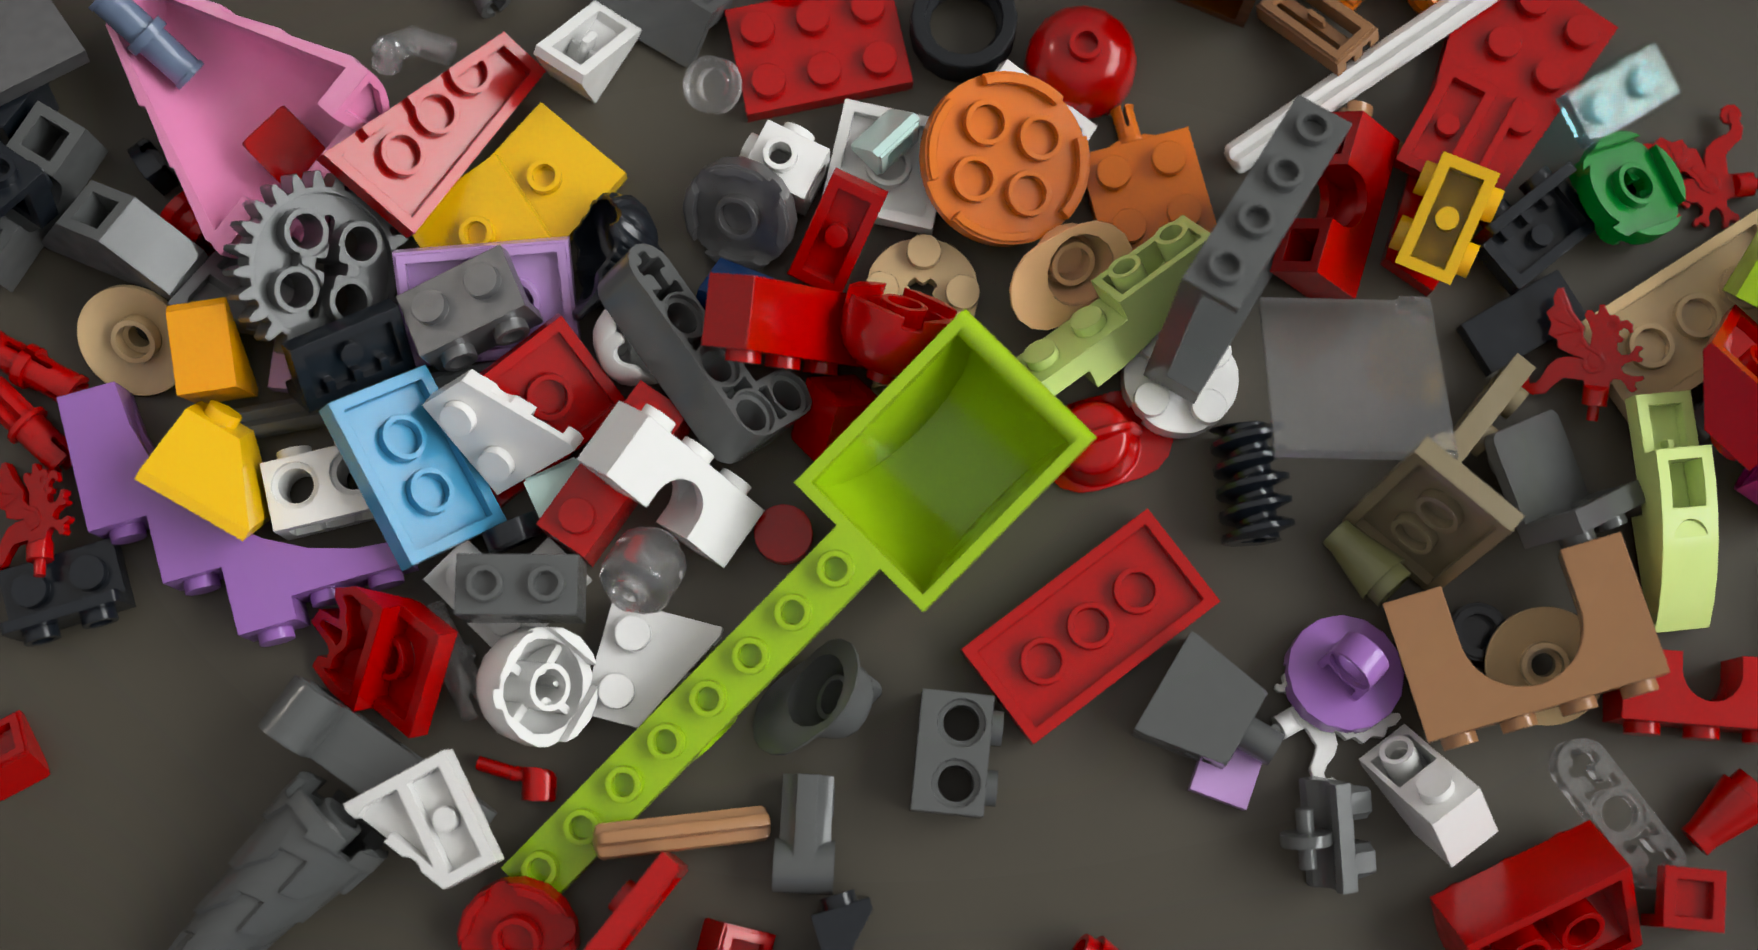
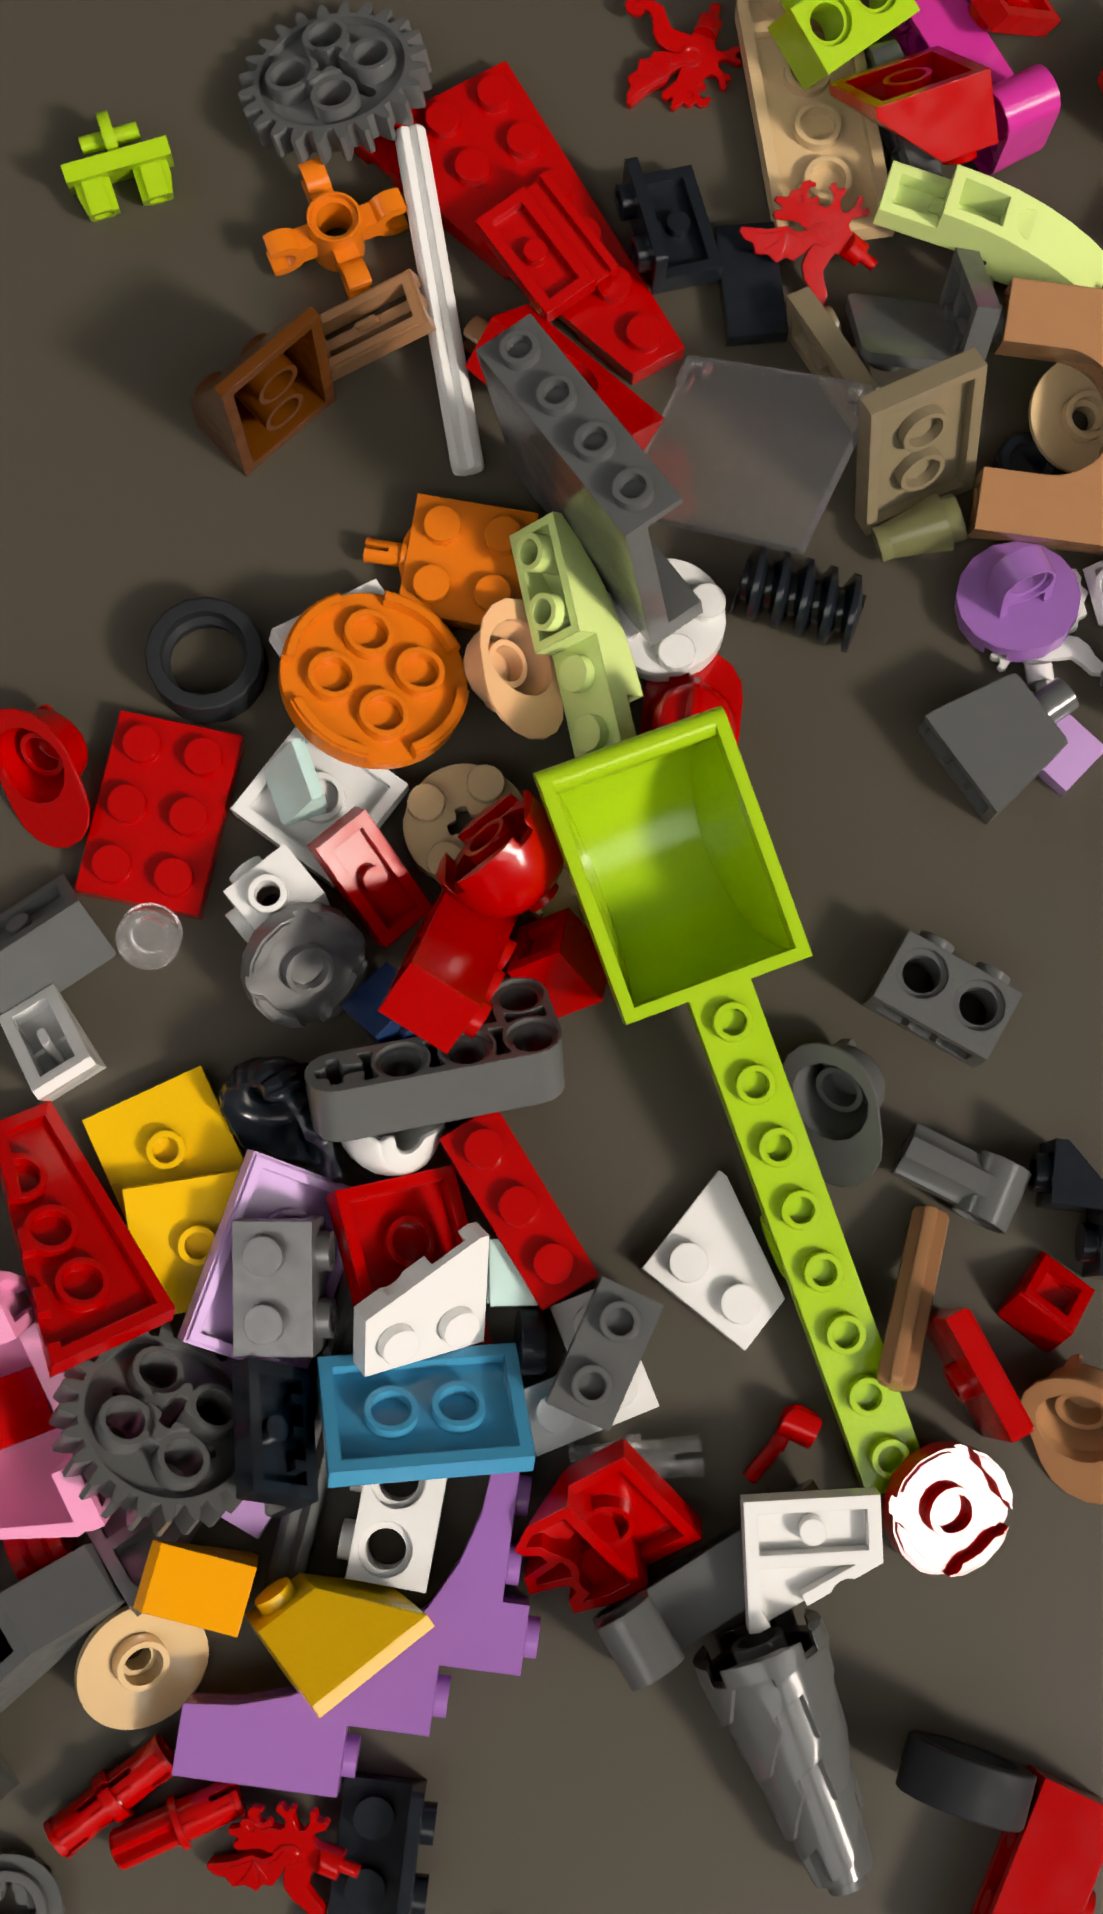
camera: 70 degrees left, 0 degrees up
(537, 686) = (706, 1381): white cylinder -> none
(640, 456) = (561, 1150): white arch -> none
(643, 570) = (631, 1223): clear head -> none
(783, 534) = (649, 1069): red tile -> none
(1084, 58) = (298, 559): red cylinder -> none
(1089, 626) = (871, 813): red plate -> none
(1453, 203) = (636, 291): yellow brick -> none
(1614, 210) = (688, 144): green plate -> none
(1618, 95) = (572, 93): clear light blue plate -> none

